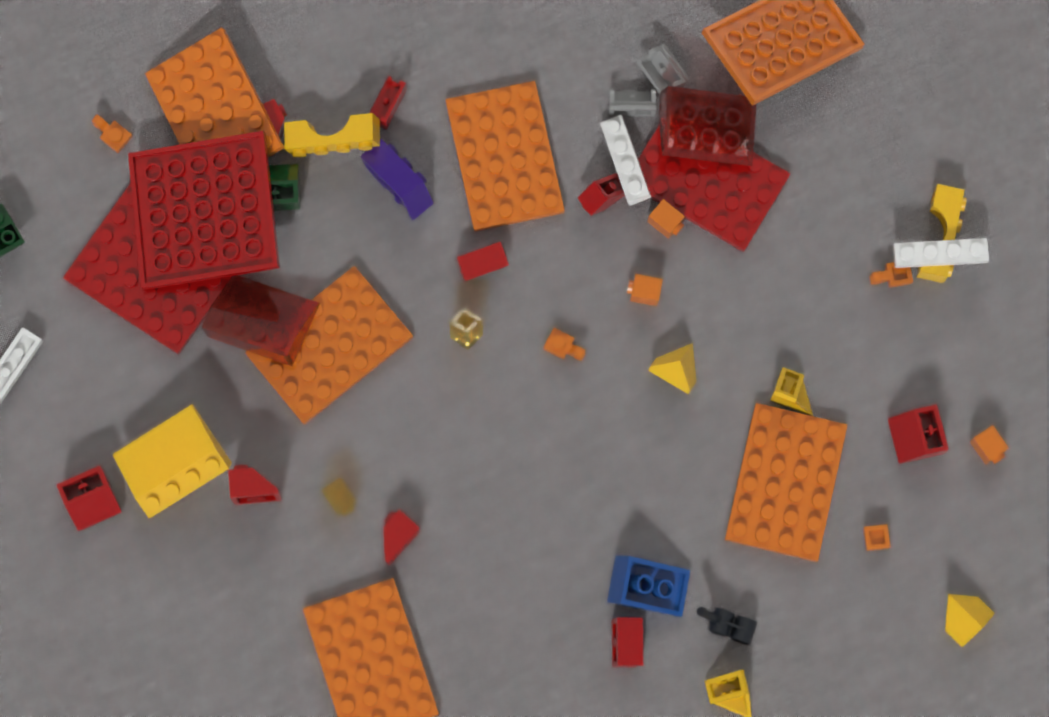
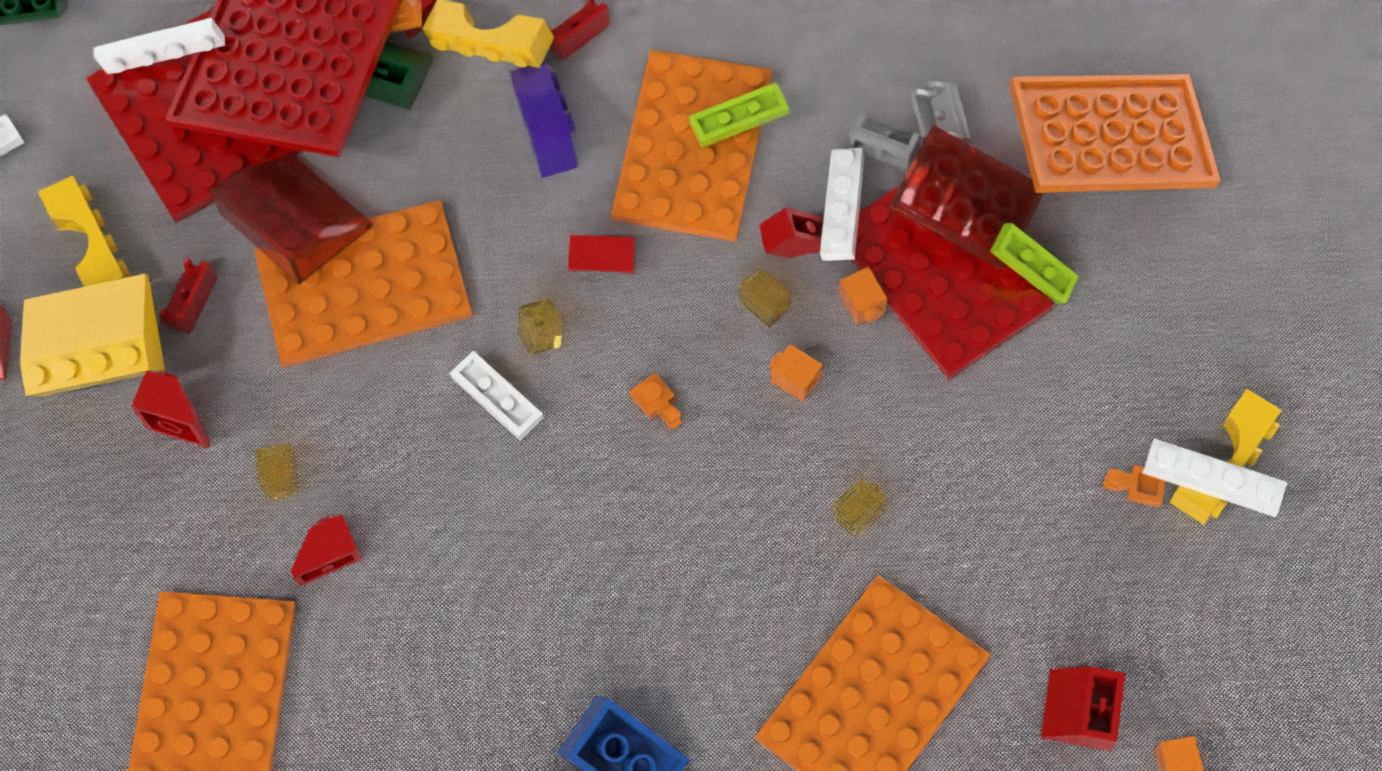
camera: 30 degrees right, 10 degrees down
(104, 376) = (70, 210): none -> yellow arch
(116, 234) = (159, 46): none -> white plate
(216, 403) = (189, 297): none -> red hinge
(457, 386) = (496, 395): none -> white plate
(530, 125) = (739, 115): none -> lime plate
(602, 246) = (764, 297): none -> clear yellow brick
(677, 368) = (792, 488): yellow slope -> none
(726, 363) = (859, 507): none -> clear yellow brick
(769, 153) = (1034, 263): none -> lime plate
(791, 392) = (932, 581): yellow slope -> none

